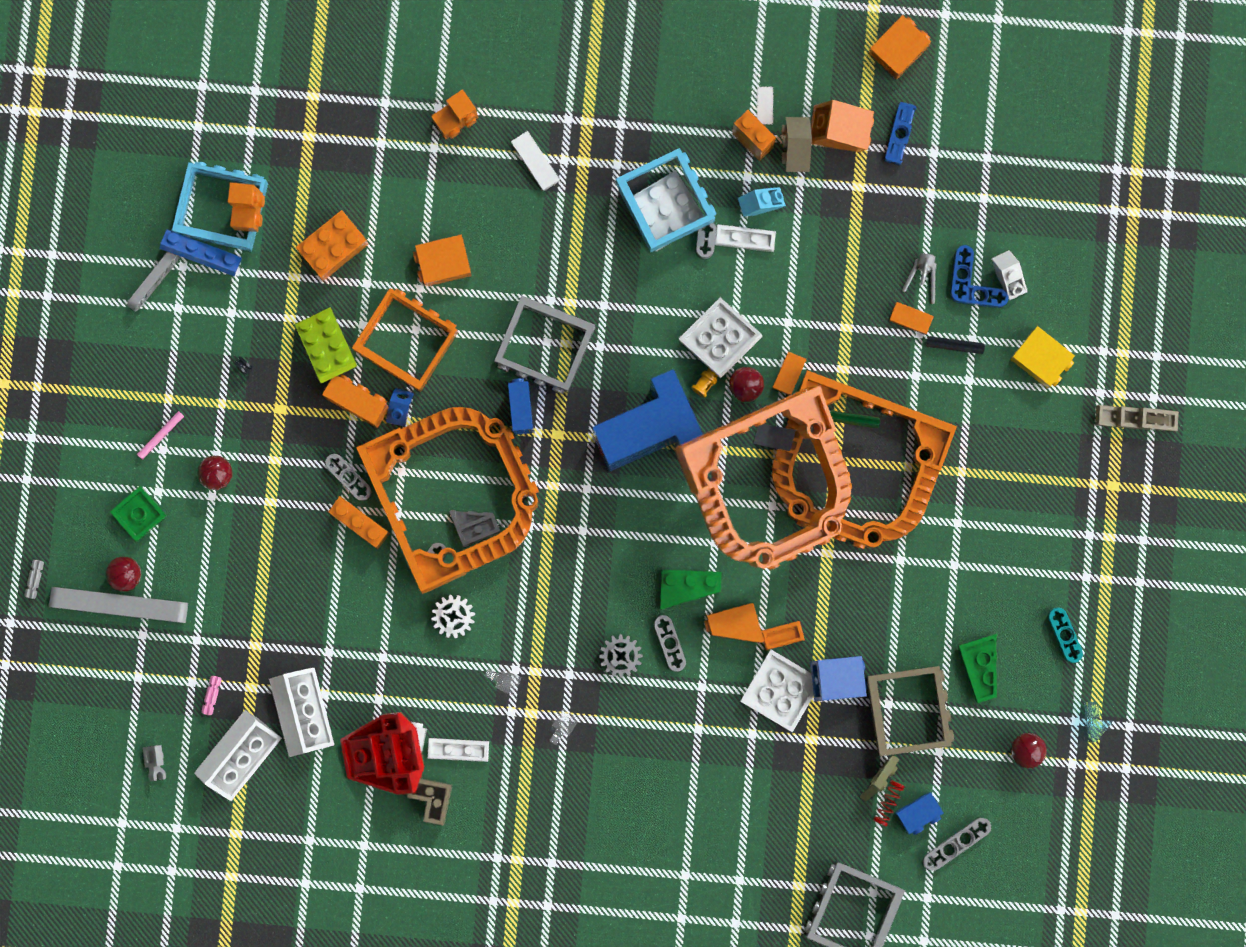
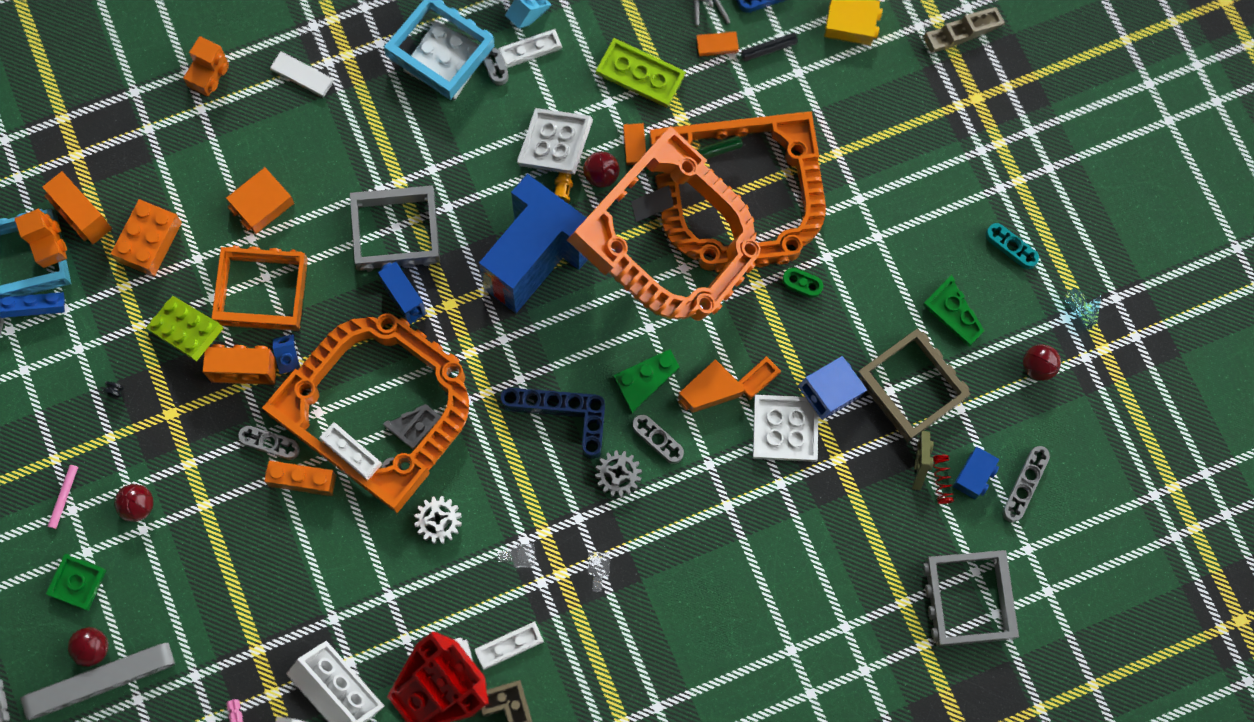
camera: 30 degrees left, 10 degrees down
(286, 190) = (76, 208): none -> orange brick
(409, 524) = (350, 451): none -> white tile
(605, 577) = (562, 409): none -> dark blue beam
(829, 311) = (640, 72): none -> lime plate
(865, 573) = (803, 281): none -> green plate

